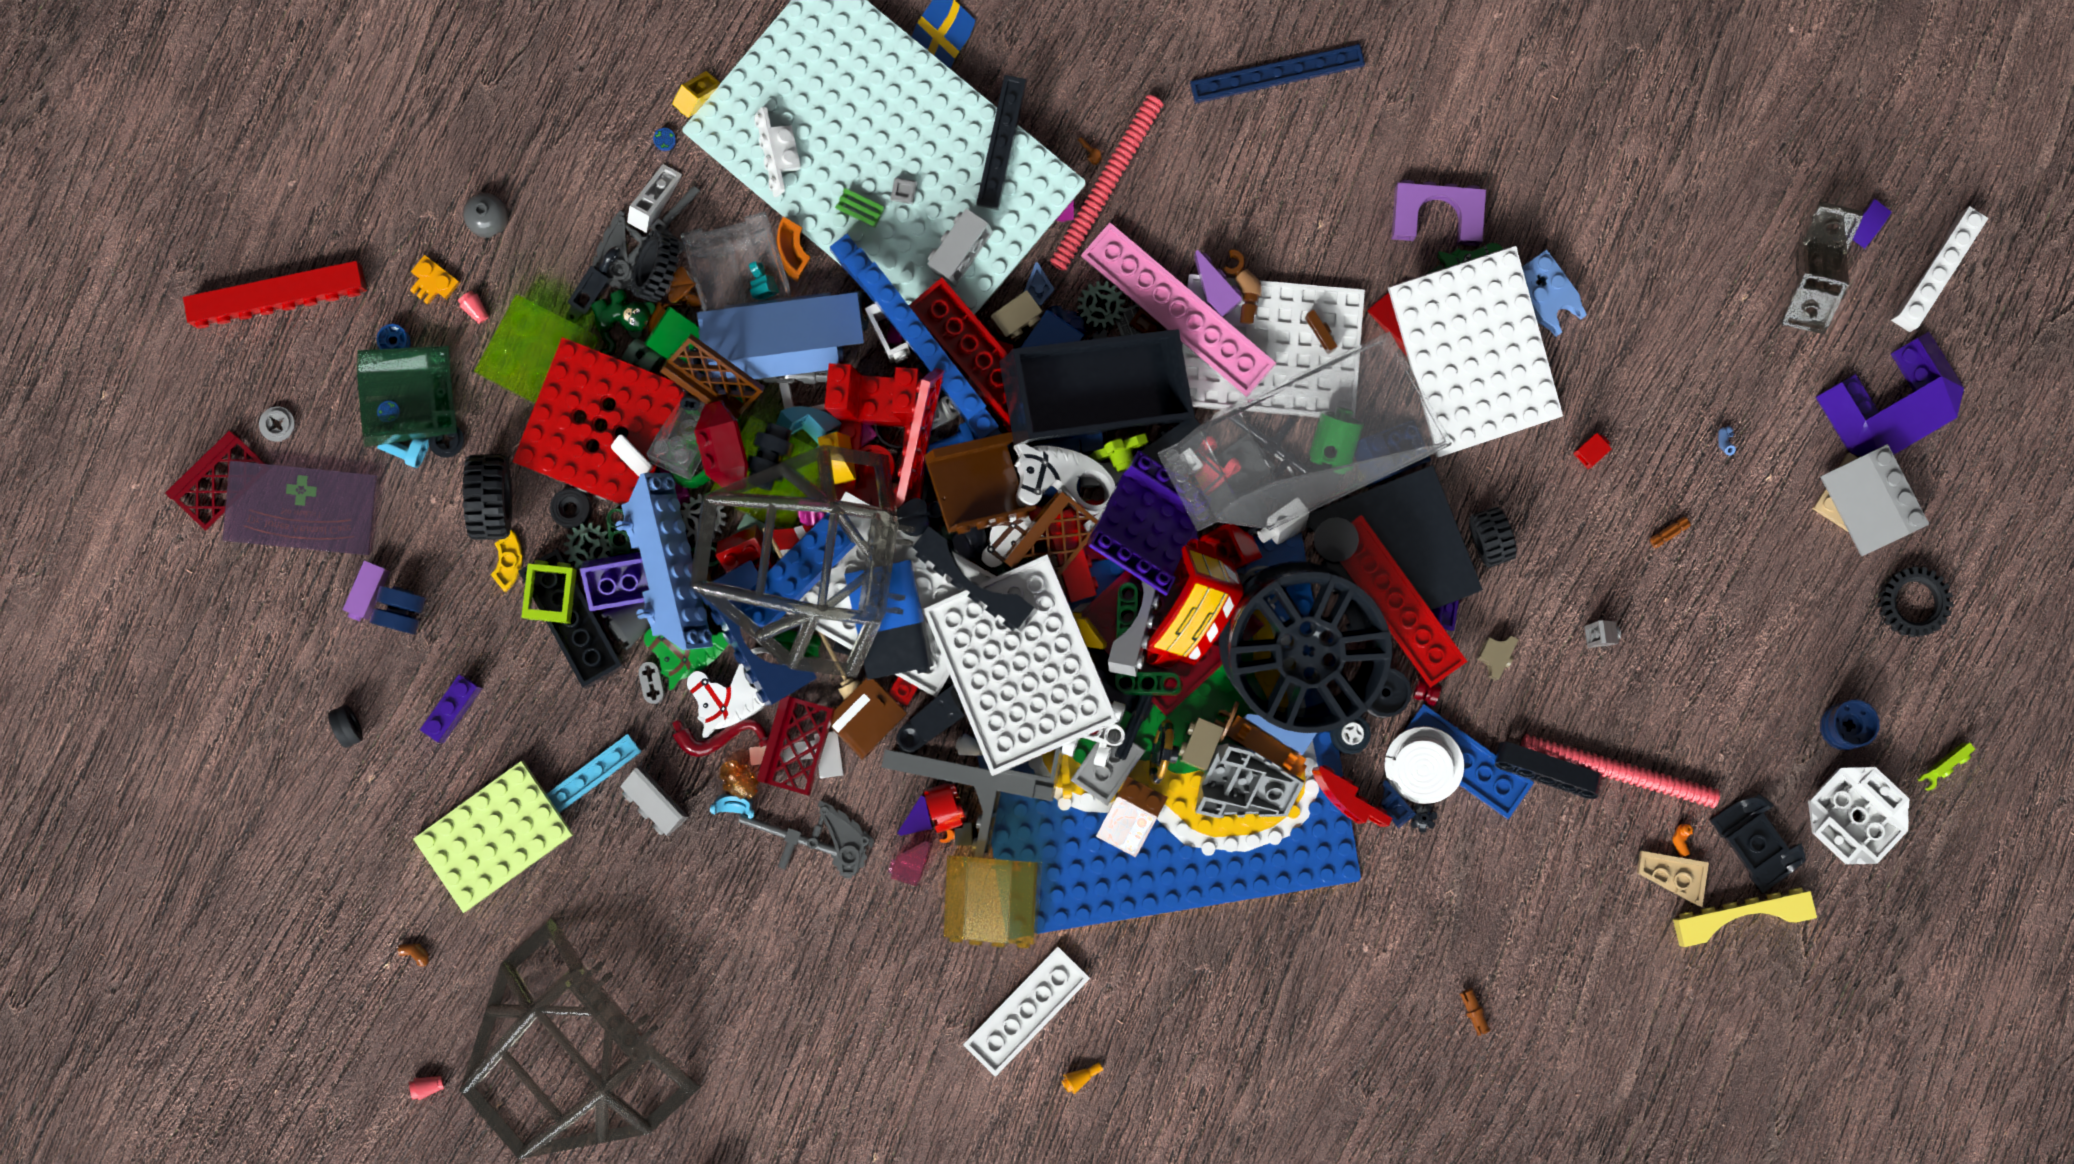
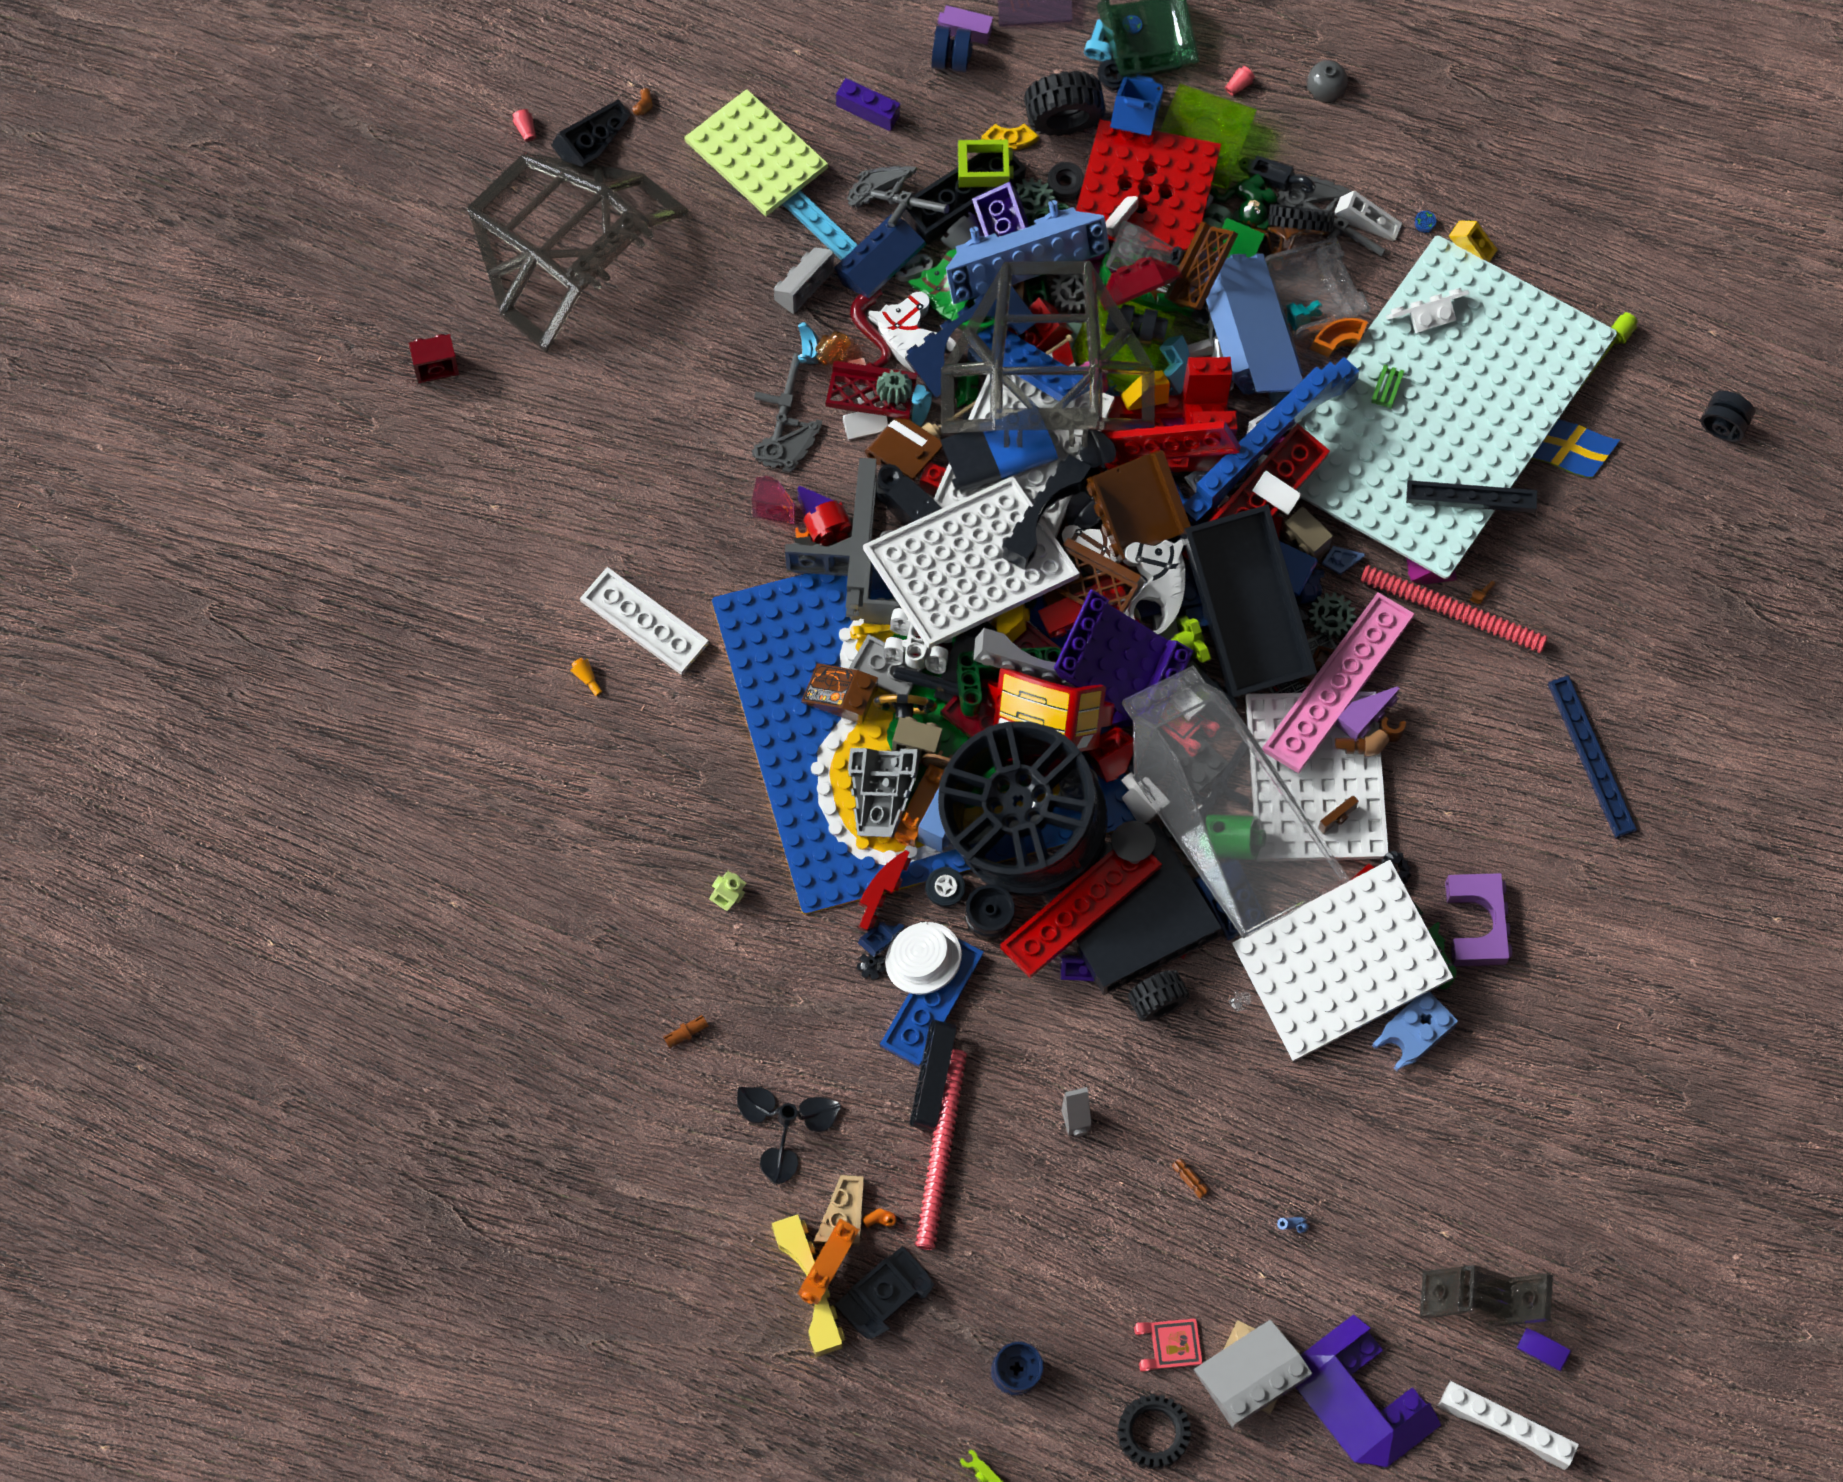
camera: 80 degrees right, 15 degrees down
(345, 726) = (841, 20): black tyre -> none
(393, 331) = (1201, 13): blue wheel -> none
(432, 280) = (1258, 46): light orange hinge -> none
(452, 1016) = (591, 135): none -> black wedge
(500, 419) = (1137, 105): none -> blue container
(545, 706) = (874, 183): none -> dark grey bar
(639, 717) = (879, 257): none -> dark blue slope
(791, 720) = (894, 387): none -> sand green gear
(818, 695) = (921, 404): none -> medium azure helmet
(903, 191) = (1410, 421): light grey tile -> none
(959, 247) = (1362, 468): light grey brick -> none
(982, 339) = (1276, 492): none -> white slope
(992, 901) = (746, 575): clear yellow windscreen -> none
(1333, 954) = (727, 890): none -> yellowish green brick
(1368, 282) = (1397, 858): none -> black gear
(1430, 696) = (995, 957): dark red wheel -> none
(1496, 458) = (1240, 1001): none -> clear piece
(1497, 655) = (1041, 1018): dark tan brick -> none
(1573, 888) = (758, 1102): none -> black plant
(1593, 450) = (1262, 1092): red brick -> none
(1734, 896) = (828, 1262): none -> orange brick
(1830, 571) = (1173, 1343): none -> coral flag
(1881, 810) = (917, 1360): white piece -> none

